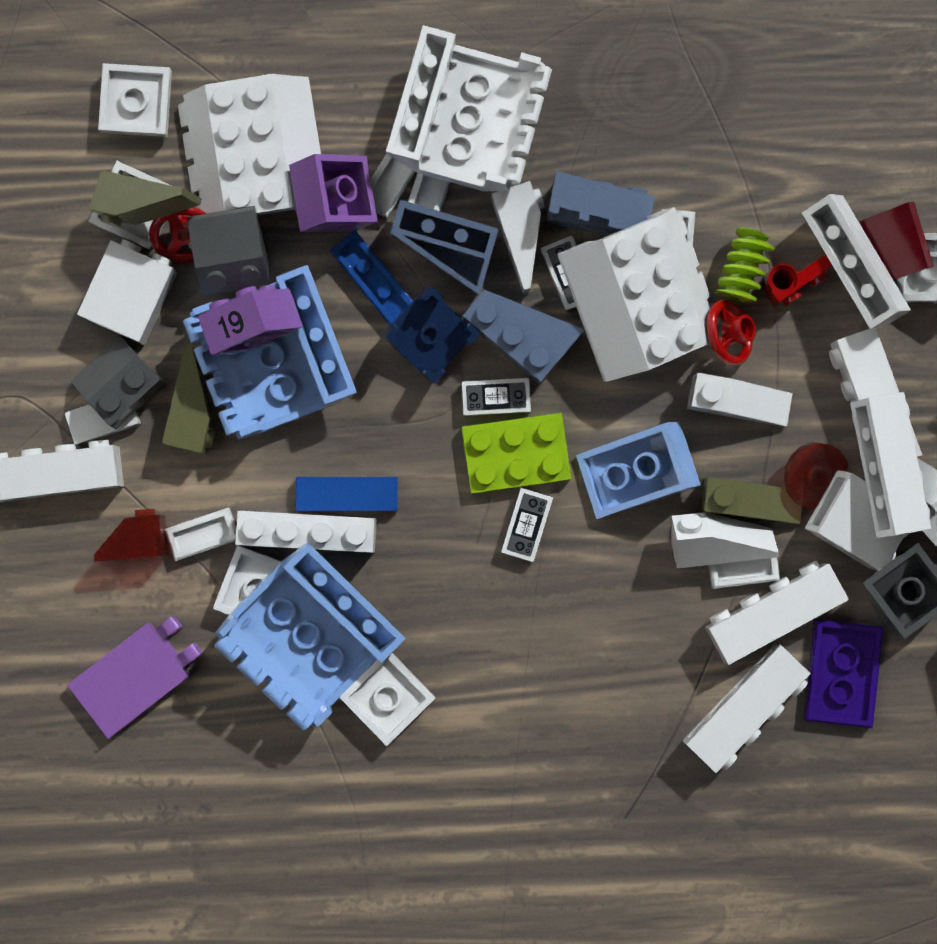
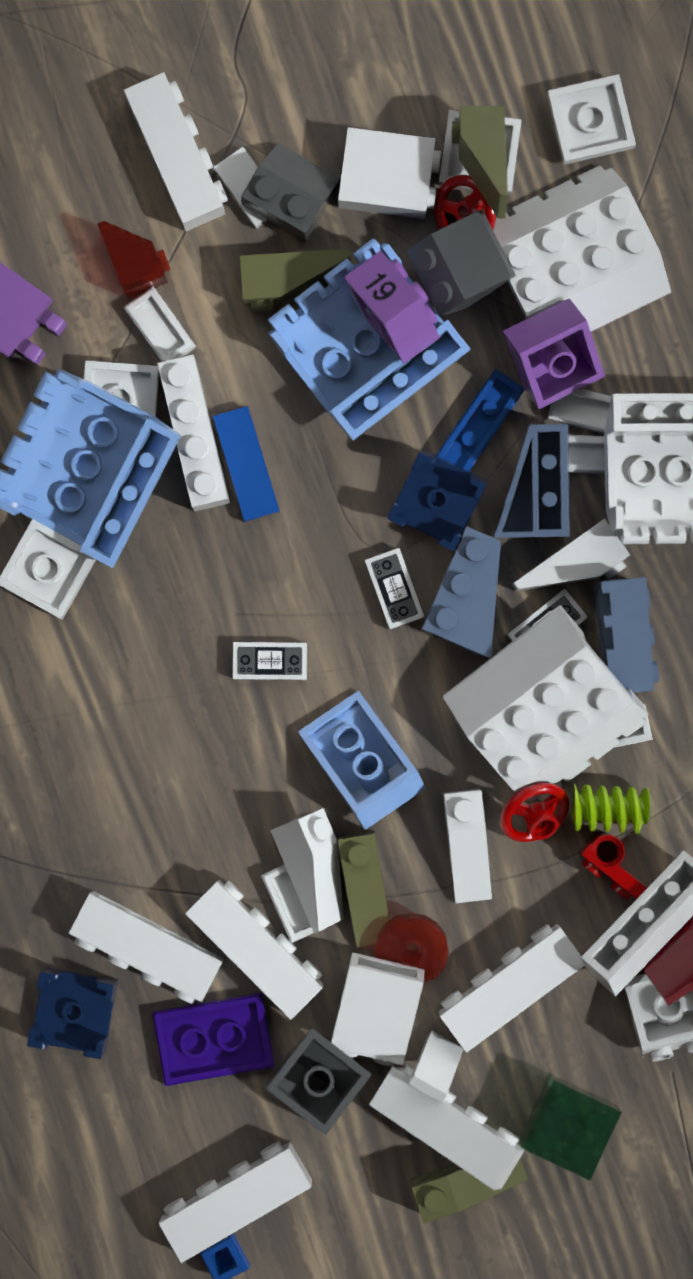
camera: 75 degrees right, 0 degrees up
(516, 453) = (341, 627): lime plate -> none
(784, 789) = (73, 1012): none -> dark blue panel
(890, 465) = (443, 1020): white brick -> none

